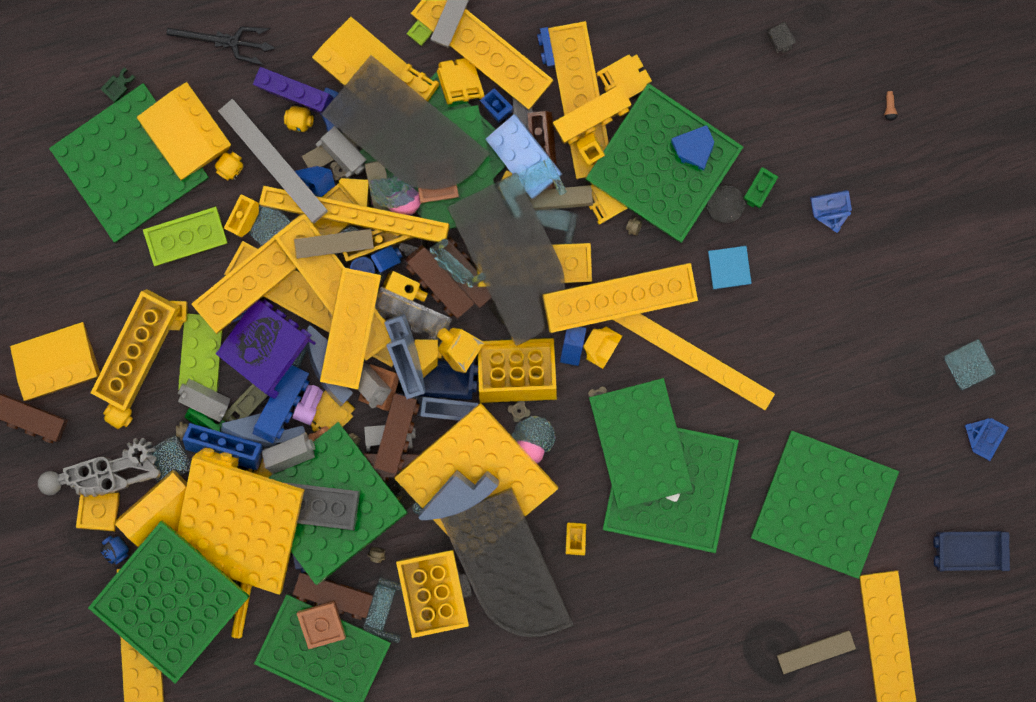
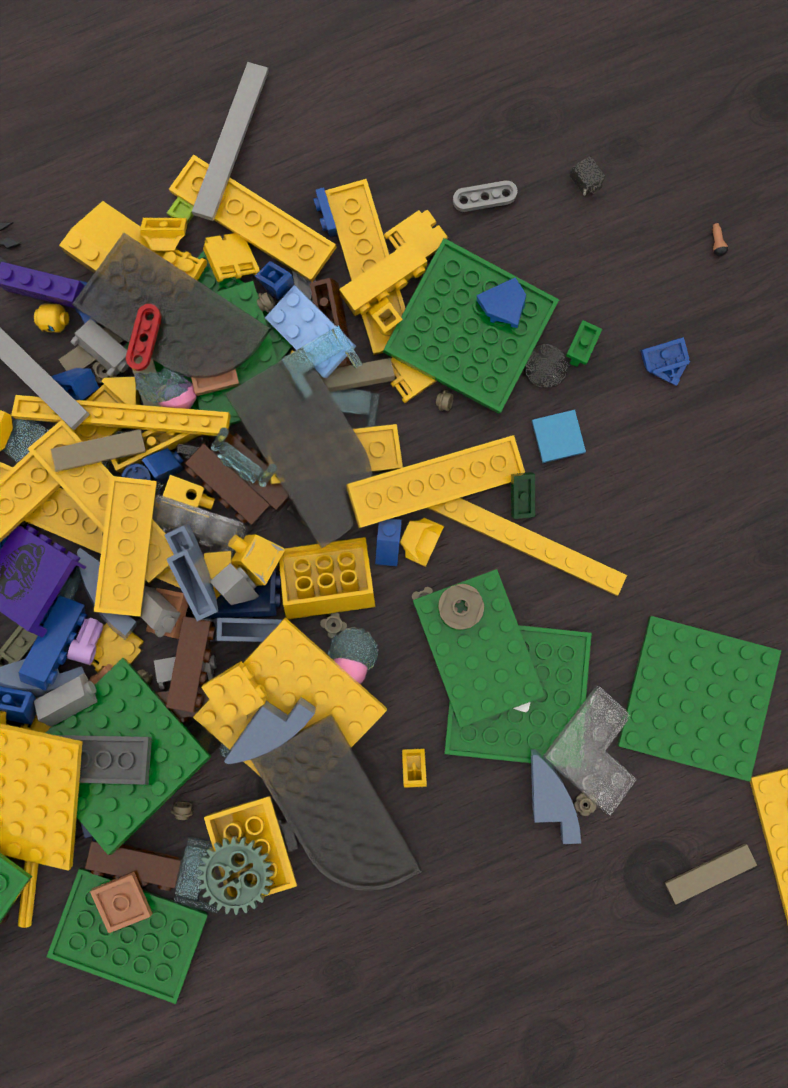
camera: 10 degrees left, 5 degrees down
(381, 142) = (143, 328): none -> red plate
(403, 53) = (163, 233): none -> yellow slope
(411, 596) = (247, 892): none -> sand green gear
(433, 461) = (235, 692): none -> yellow plate
(439, 370) = (234, 585): none -> light grey slope
(487, 125) = (266, 302): none -> dark tan plate
(639, 403) = (472, 600): none -> dark tan plate
(689, 576) = (551, 799): none -> sand blue slope
(693, 316) = (523, 495): none -> dark green plate
(696, 42) = (491, 190): none -> light grey plate
(717, 589) = (578, 805): none -> dark tan plate
(719, 536) = (582, 755): none -> clear plate

